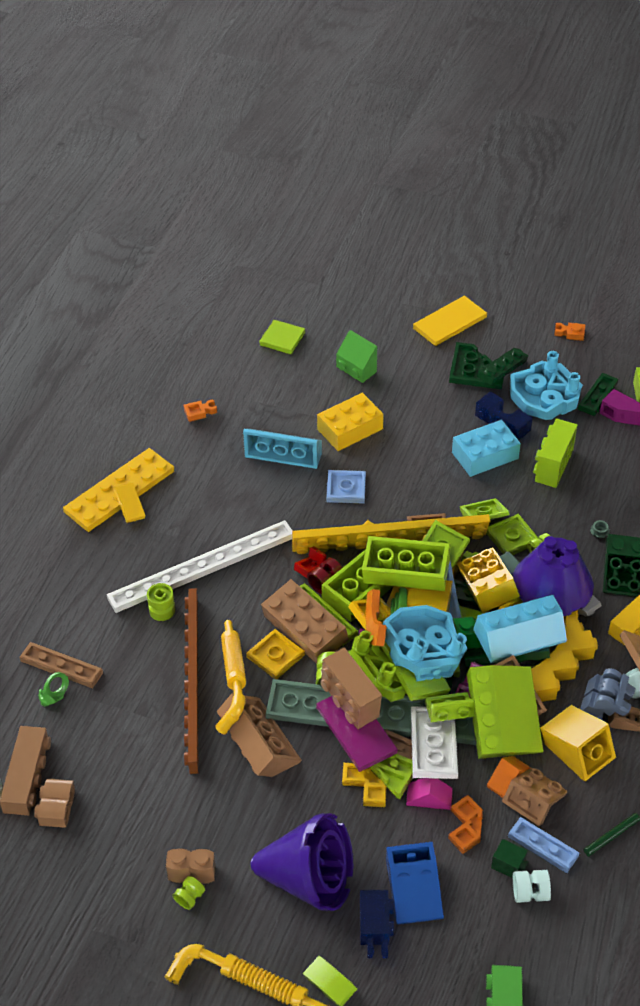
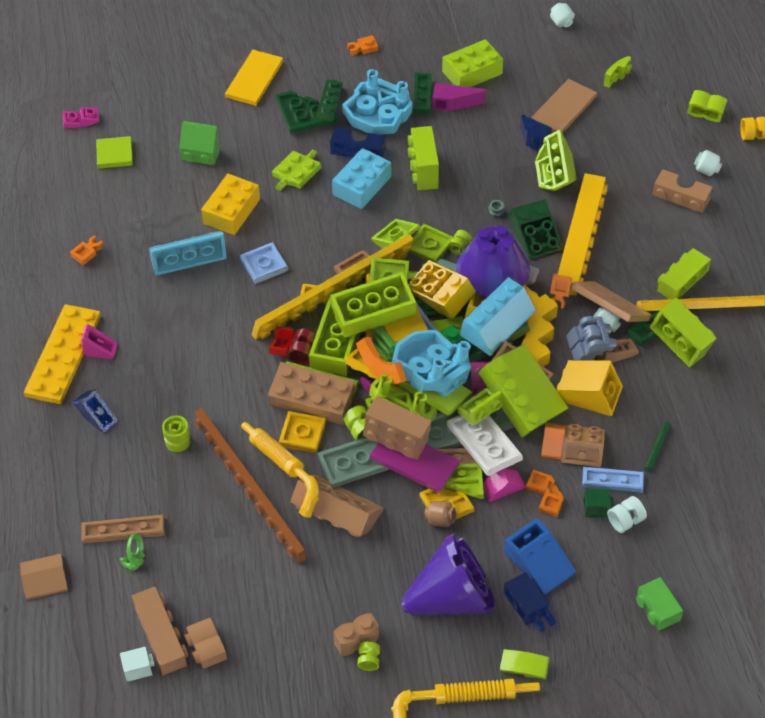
camera: 30 degrees left, 5 degrees up
(109, 550) = (95, 410): none -> clear blue slope
(129, 502) = (84, 360): yellow tile -> none
(151, 493) = (97, 344): none -> dark pink slope
(202, 565) = (186, 388): white plate -> none
(271, 297) = (86, 117): none -> dark pink slope
(348, 792) = (440, 514): none -> medium nougat head
(432, 416) = (296, 170): none -> lime plate
(610, 631) = (561, 287): none -> orange plate

